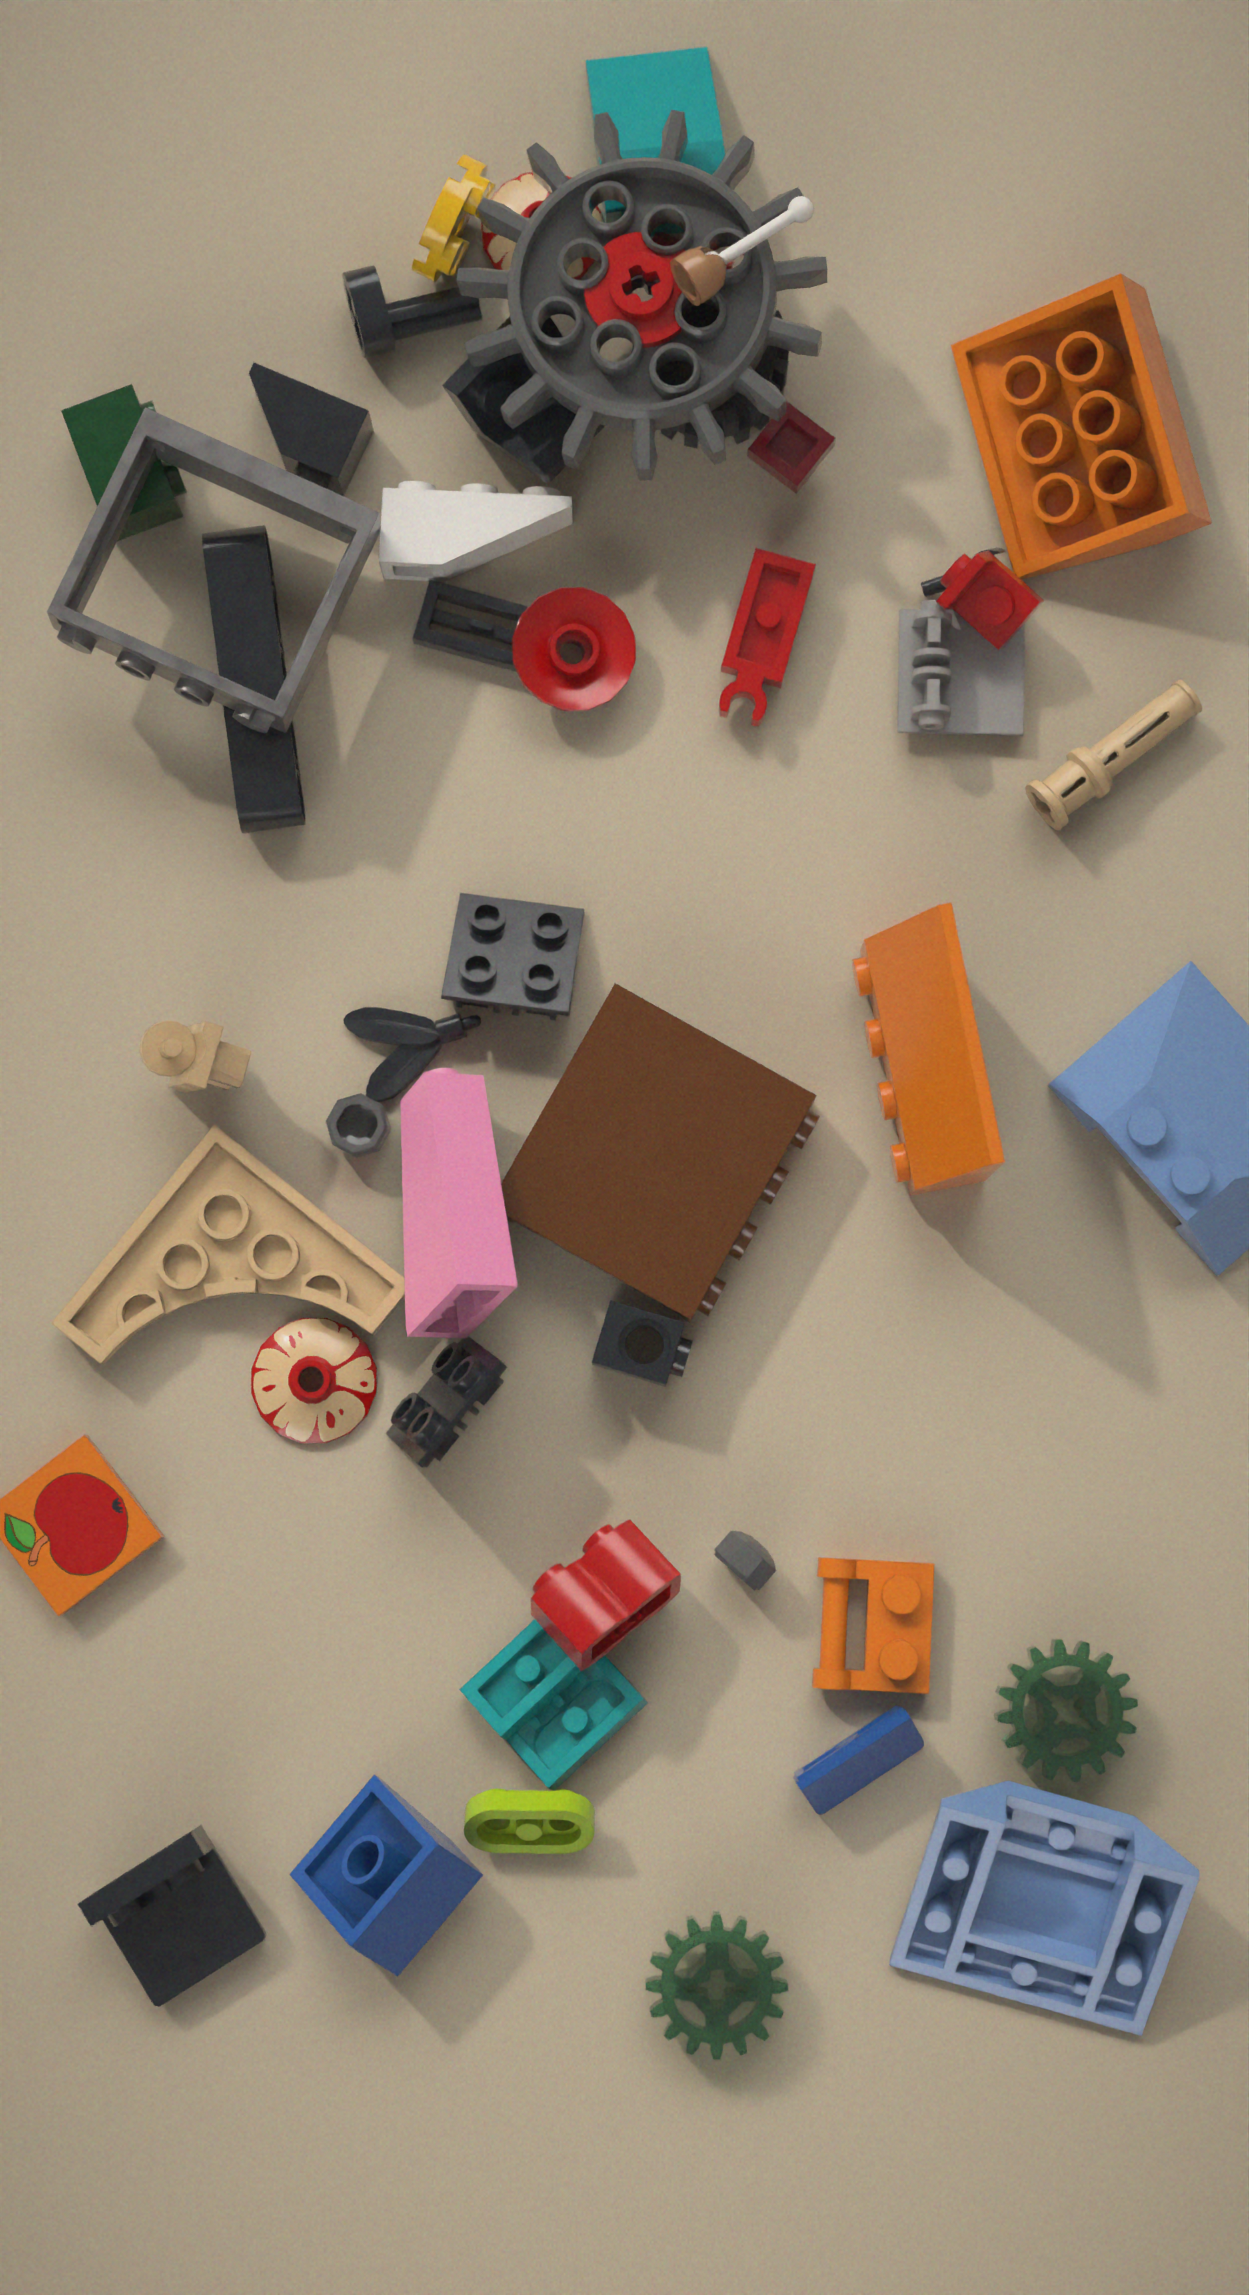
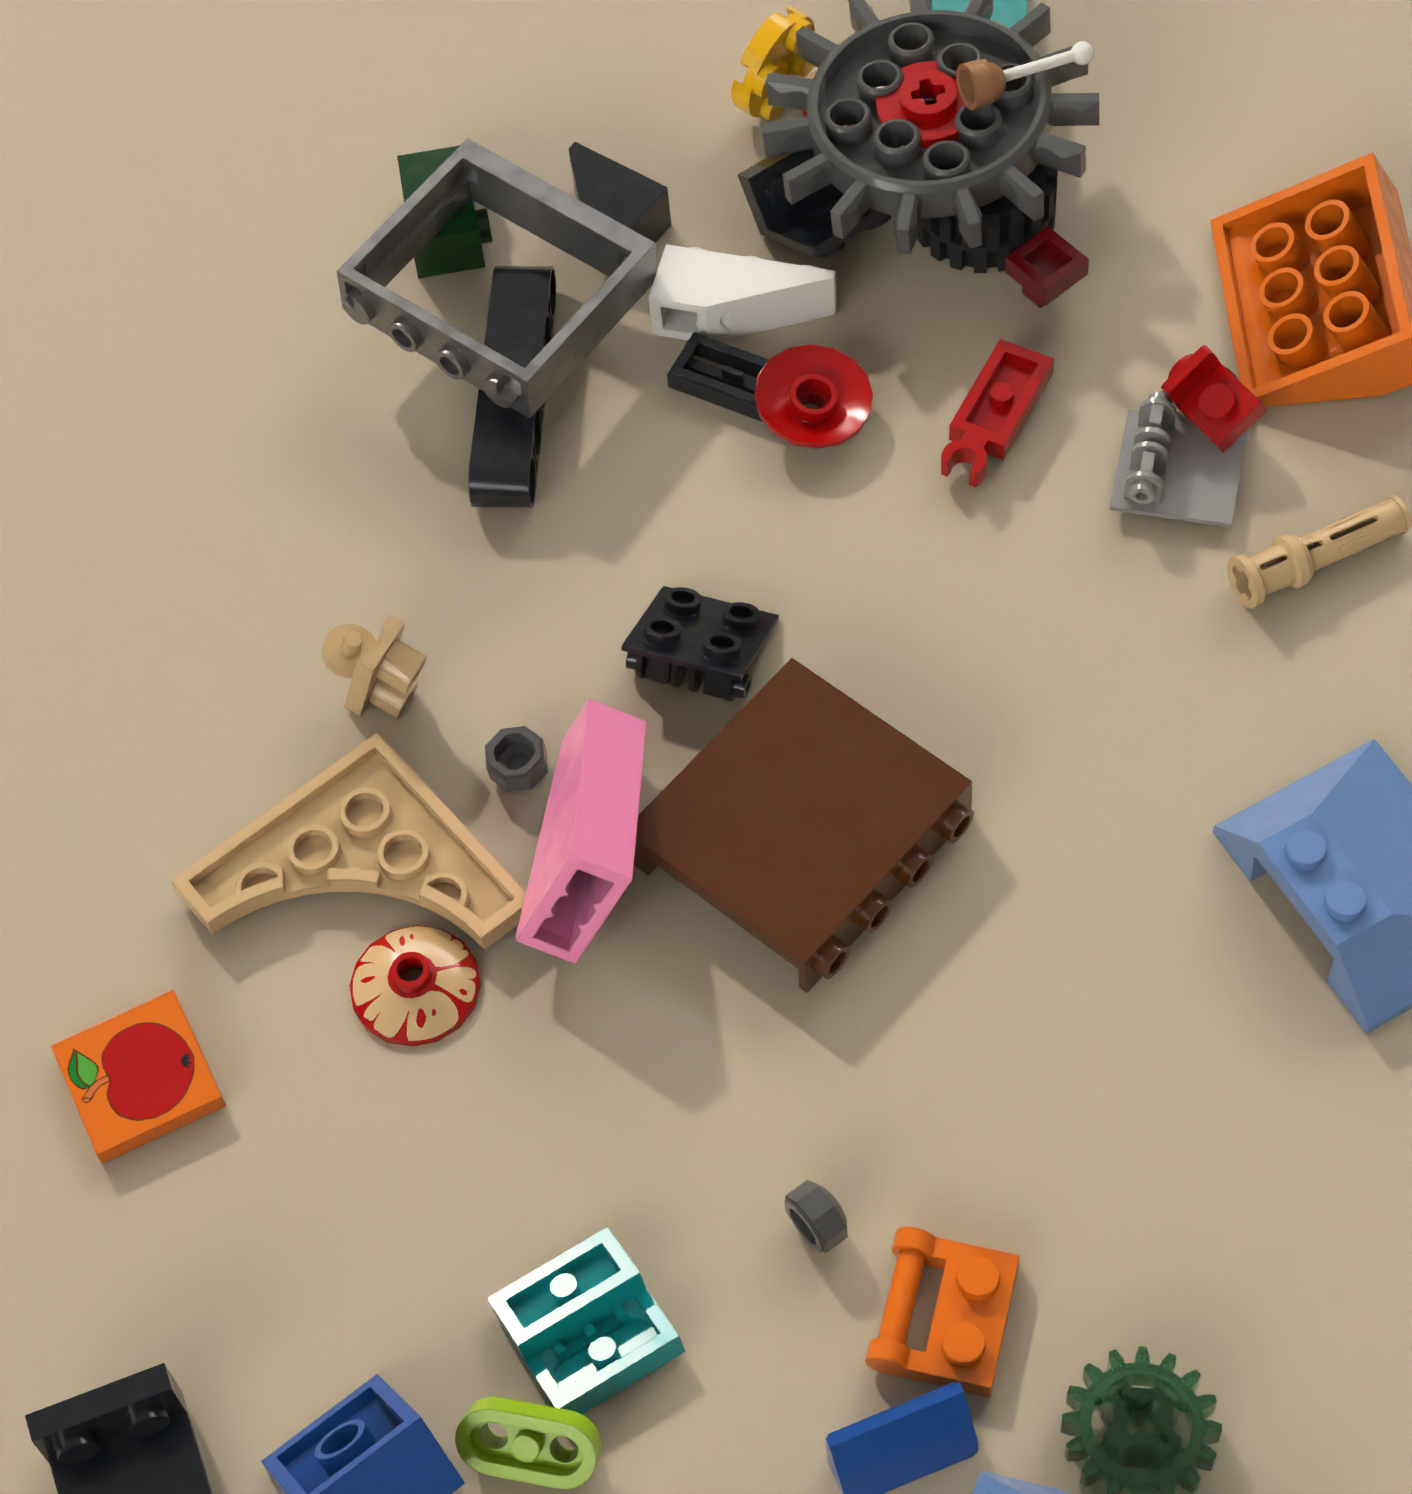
camera: 15 degrees right, 25 degrees down
(382, 324) = (695, 141): black piece -> none
(418, 1041) = (576, 688): black piece -> none
(426, 1420) = (572, 995): black hinge -> none
(604, 1592) = (660, 1216): red brick -> none
(620, 1323) = (745, 966): black brick -> none
(929, 1053) = (1091, 760): orange slope -> none

